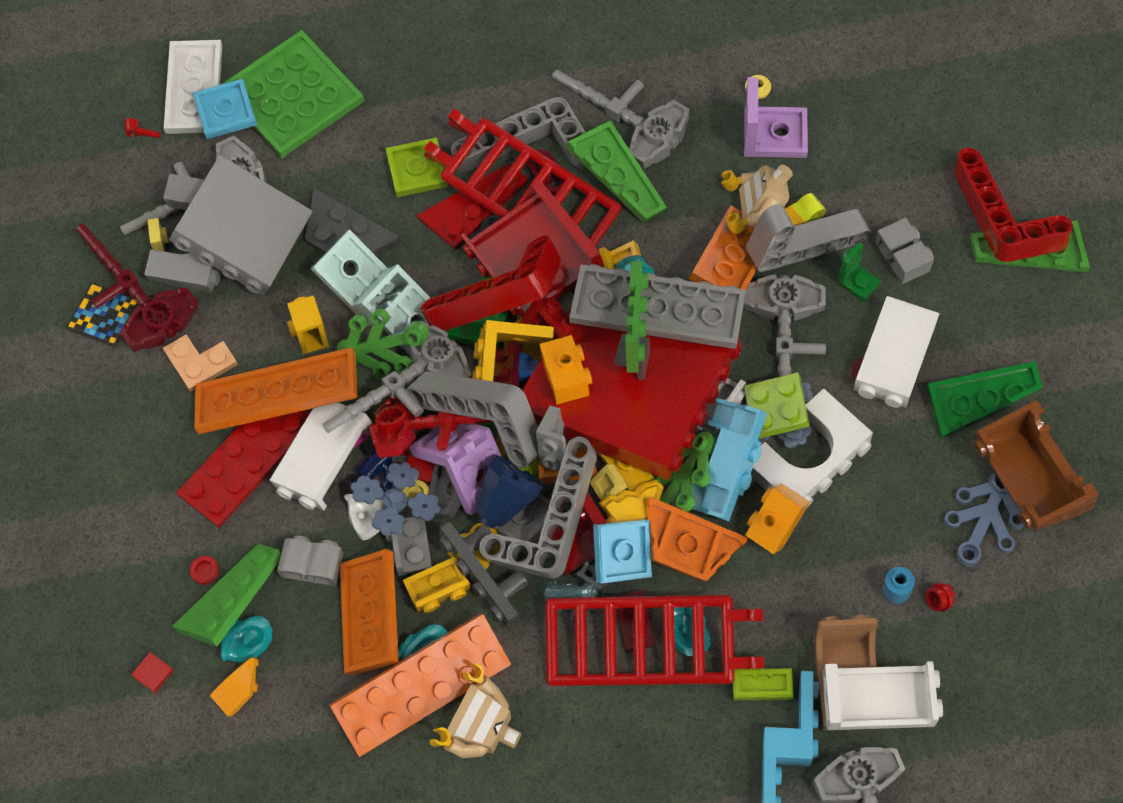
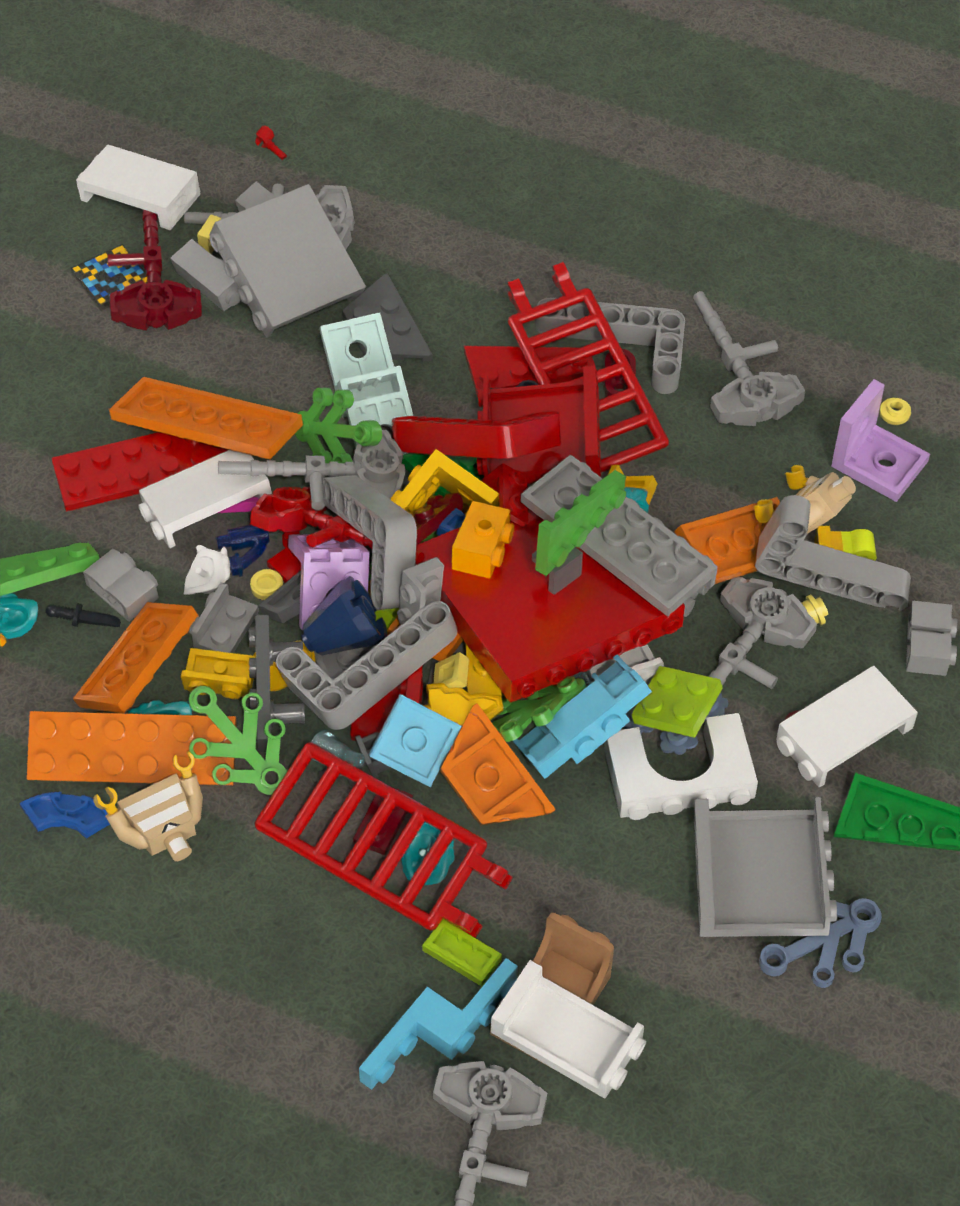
camera: 30 degrees right, 10 degrees down
(68, 224) = (140, 183): none -> white panel
(190, 69) = (346, 131): white plate -> none
(198, 367) = (156, 363): light nougat plate -> none
(204, 570) = (23, 538): red tile -> none
(224, 108) = (357, 161): medium azure tile -> none
(296, 93) = (431, 183): bright green plate -> none
(297, 604) = (82, 616): none -> black piece
(307, 324) = (281, 377): yellow brick -> none
(395, 499) = (239, 573): sand blue plant -> none
(408, 759) = (65, 810): none -> blue tile
(412, 171) = (490, 306): lime plate -> none
(502, 631) = (242, 744): none -> bright green plant
(615, 166) = (687, 400): bright green wing -> none
(776, 518) = (594, 803): light orange brick -> none
(814, 273) = (816, 609): none -> light yellow plate
(854, 277) = (857, 631): green bracket -> none
(898, 585) = (672, 941): dark azure brick -> none
(918, 494) = (763, 872): none -> light grey panel
(940, 597) = (711, 982): red plate -> none
(1034, 469) = (903, 913): dark orange windscreen -> none

